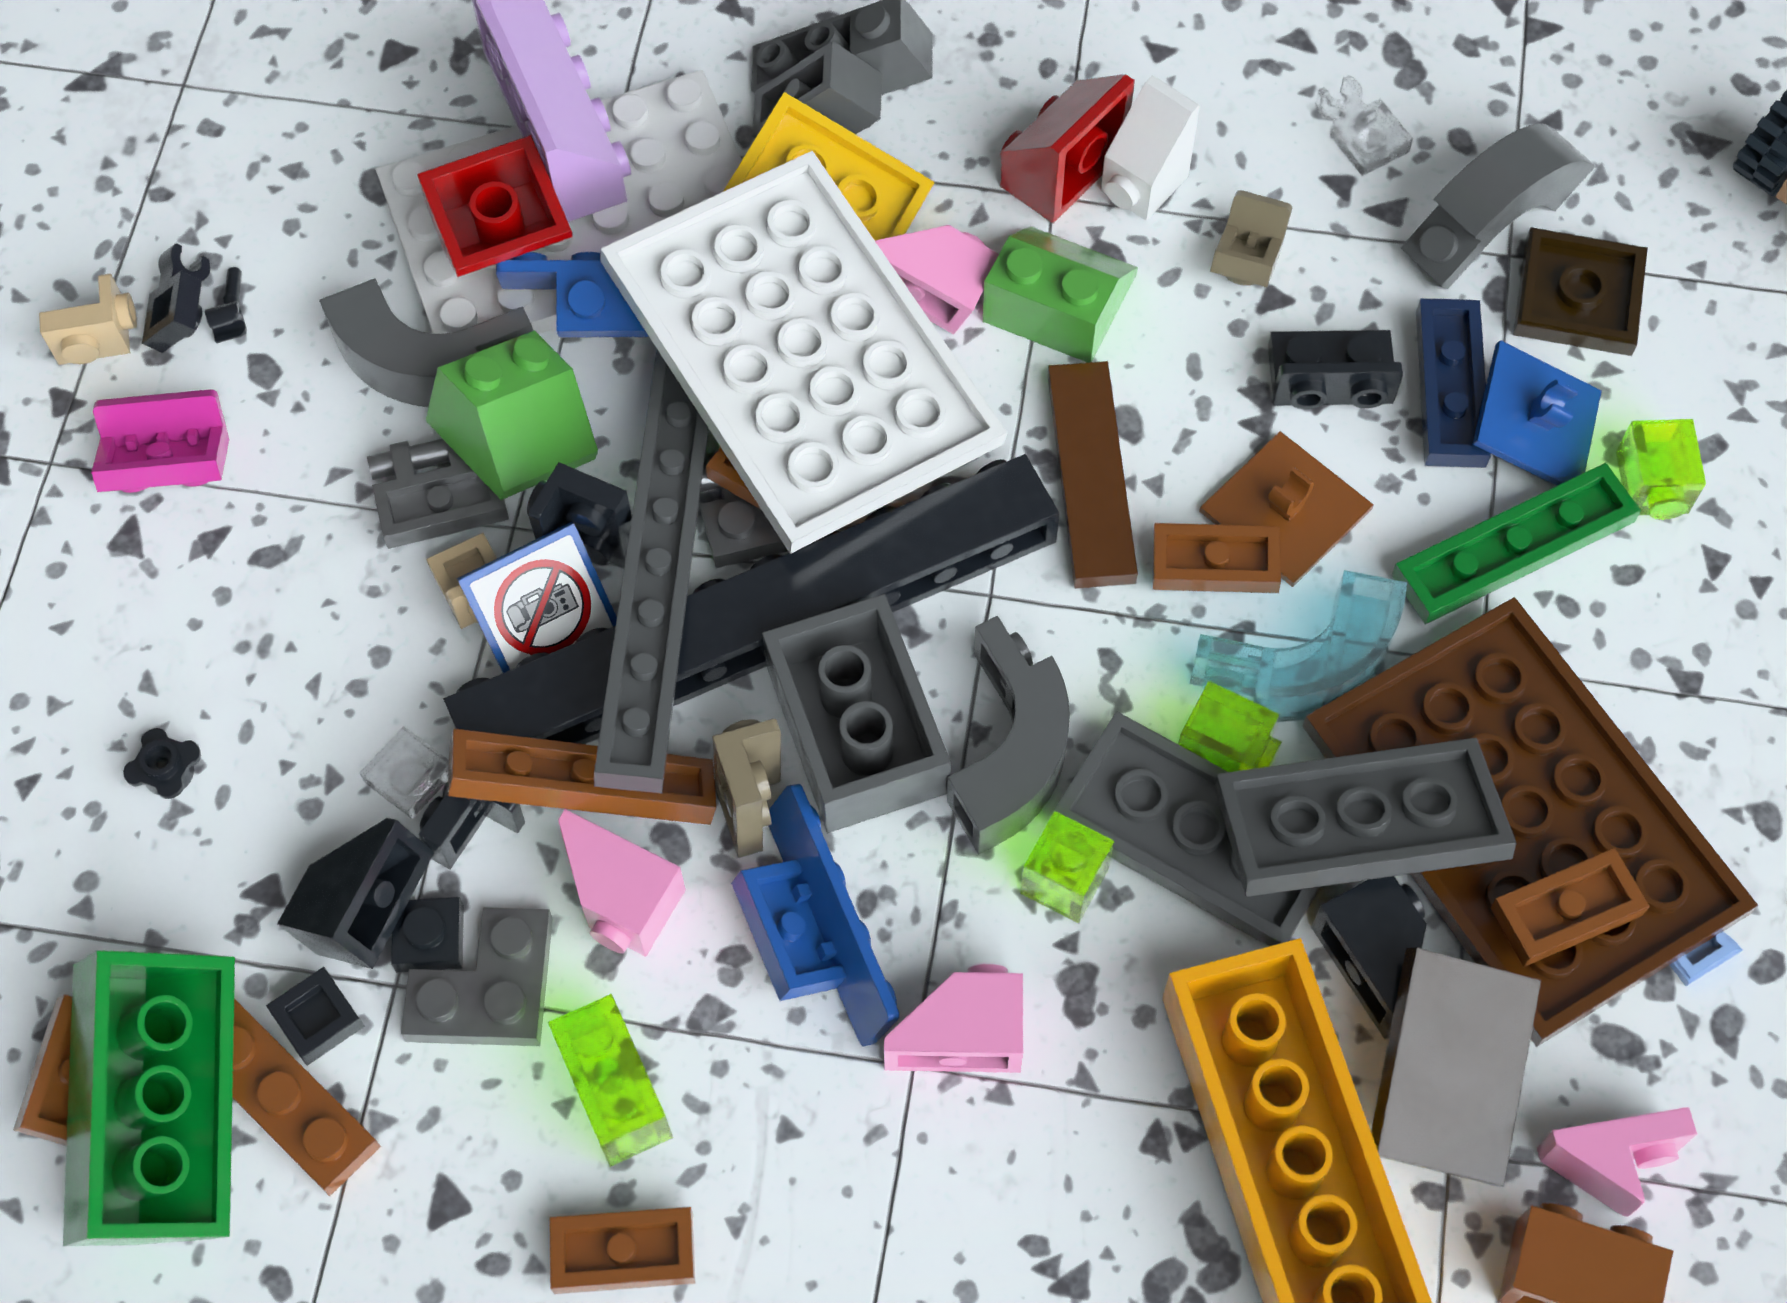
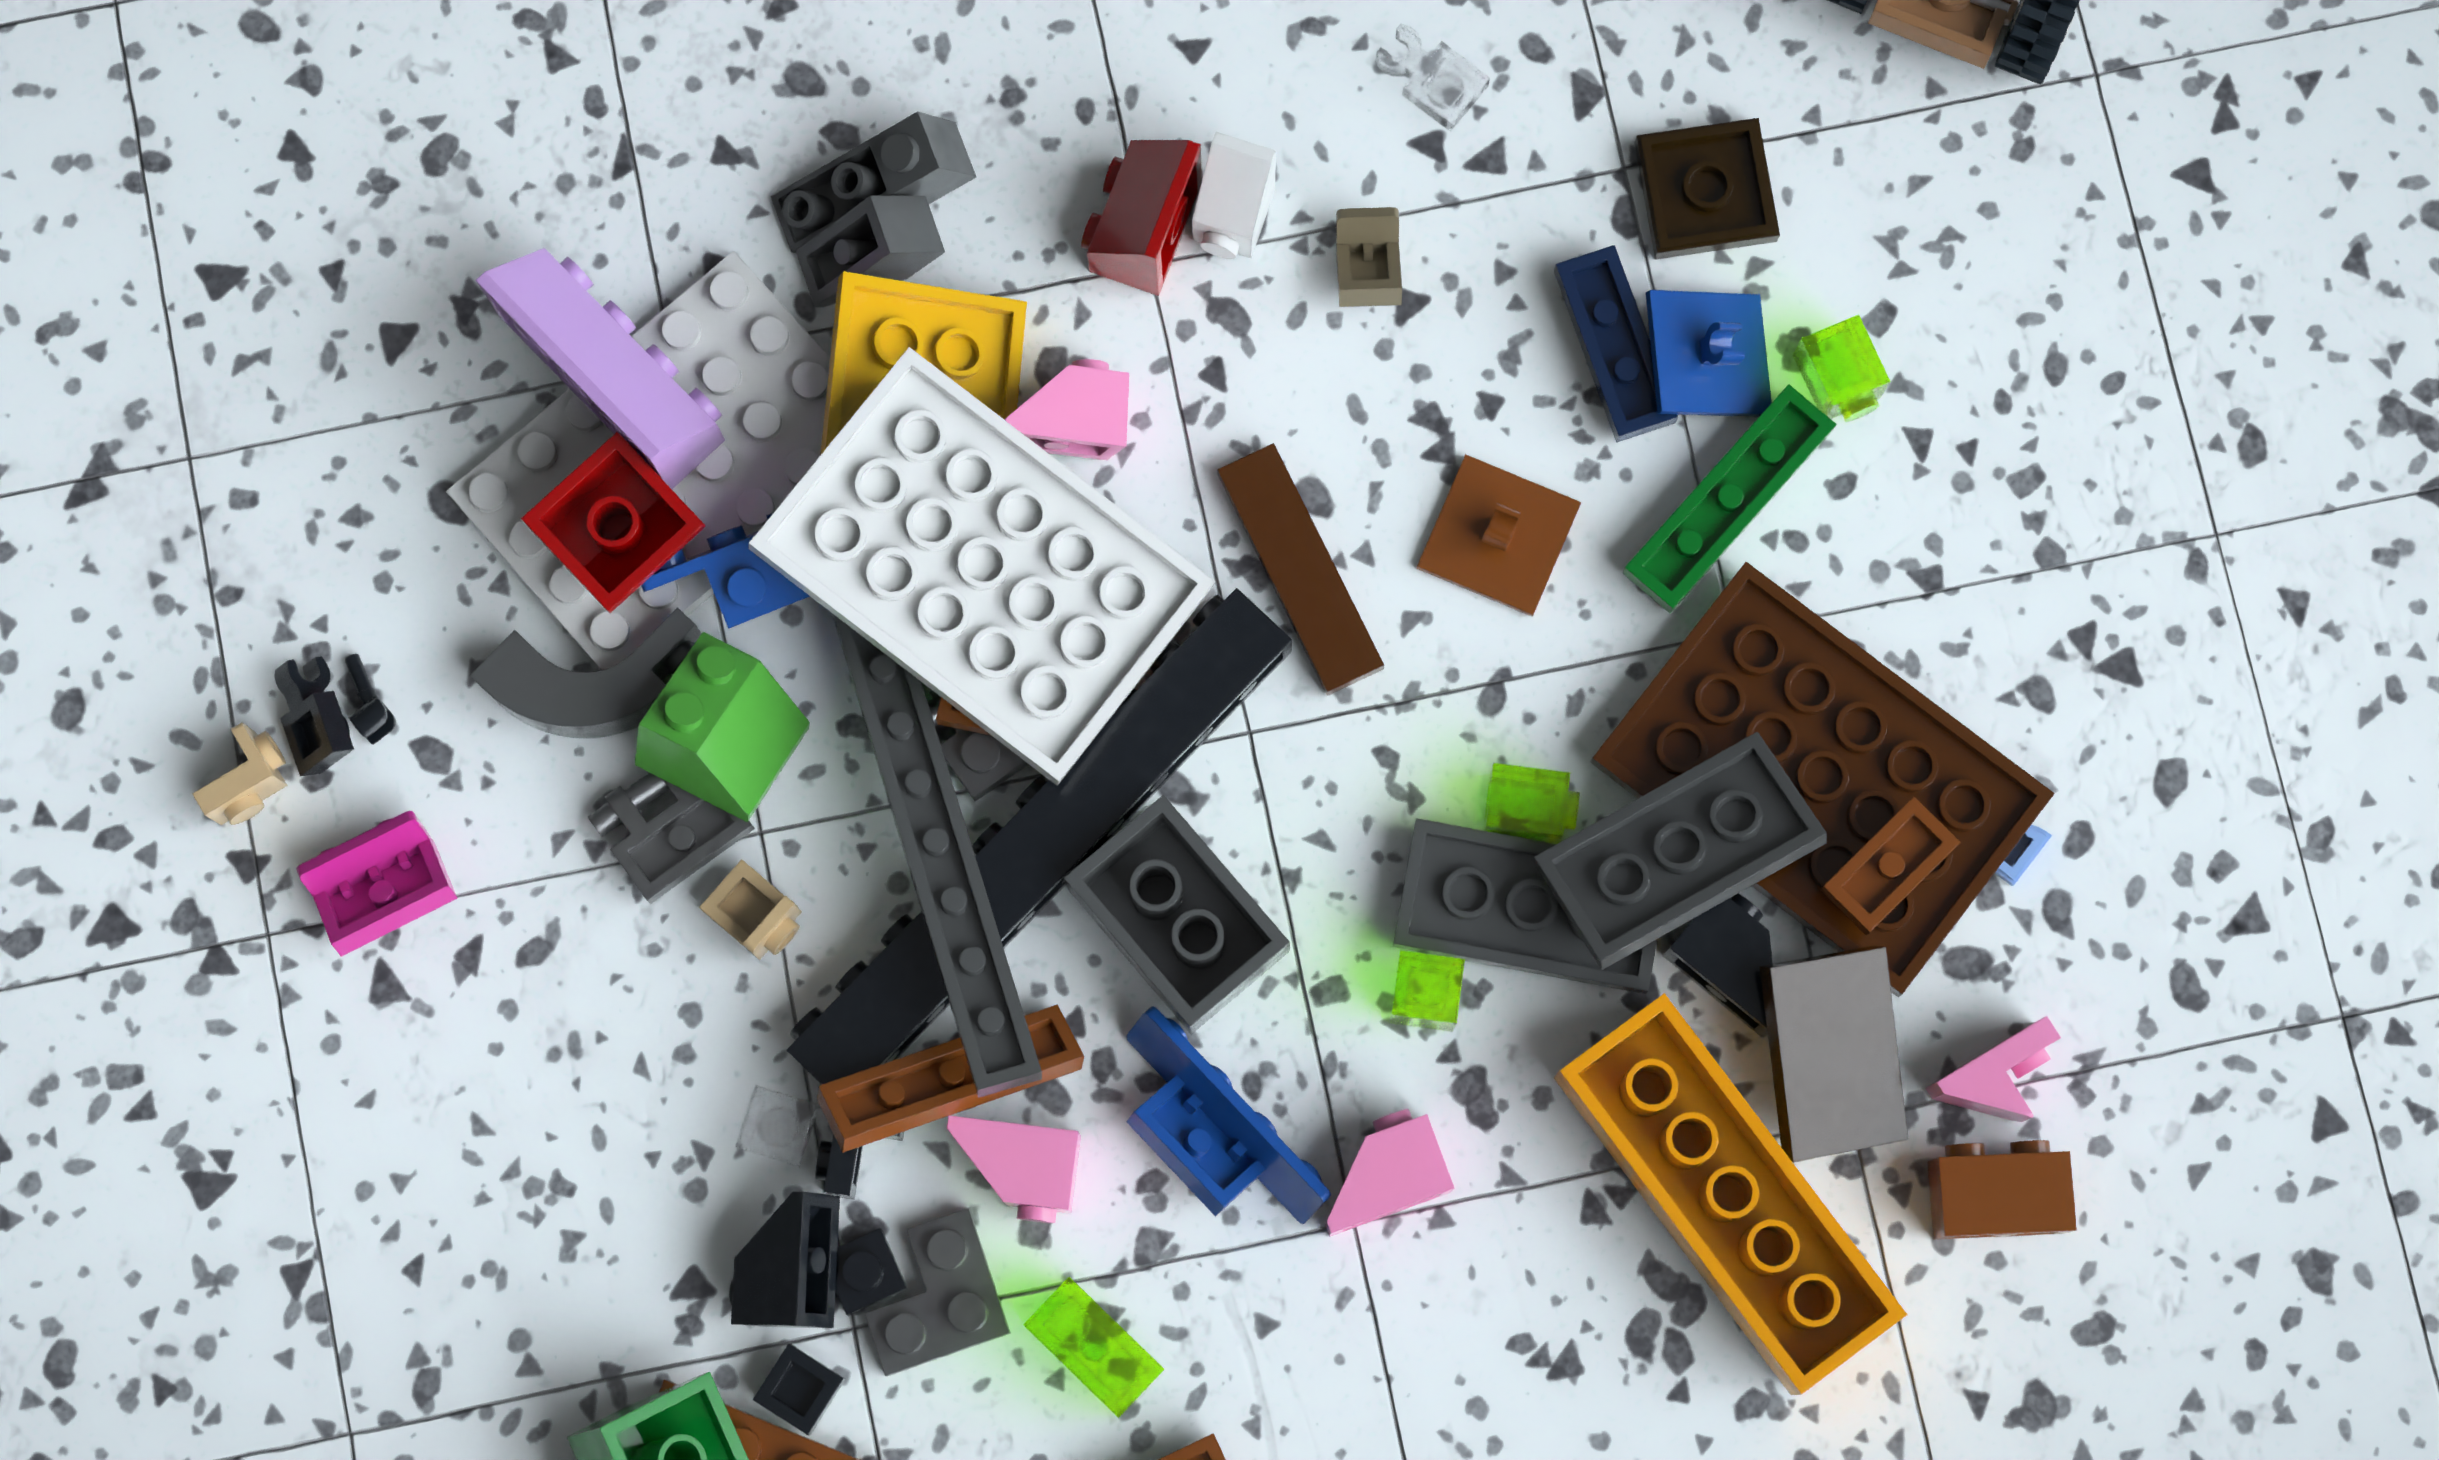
camera: 20 degrees left, 15 degrees up
(171, 779) = (553, 1217): black plate -> none
(538, 597) = (832, 915): piece -> none
(594, 506) = (848, 811): black bracket -> none
(744, 768) = (1105, 1037): dark tan bracket -> none
(1018, 778) = (1350, 919): dark grey arch -> none
(1055, 292) = (1195, 377): bright green slope -> none
(1216, 558) = (1453, 620): dark orange plate -> none
(1316, 672) = (1614, 658): clear light blue arch -> none
(1333, 368) = (1494, 367): black bracket -> none
(1493, 190) = (1596, 123): dark grey arch -> none

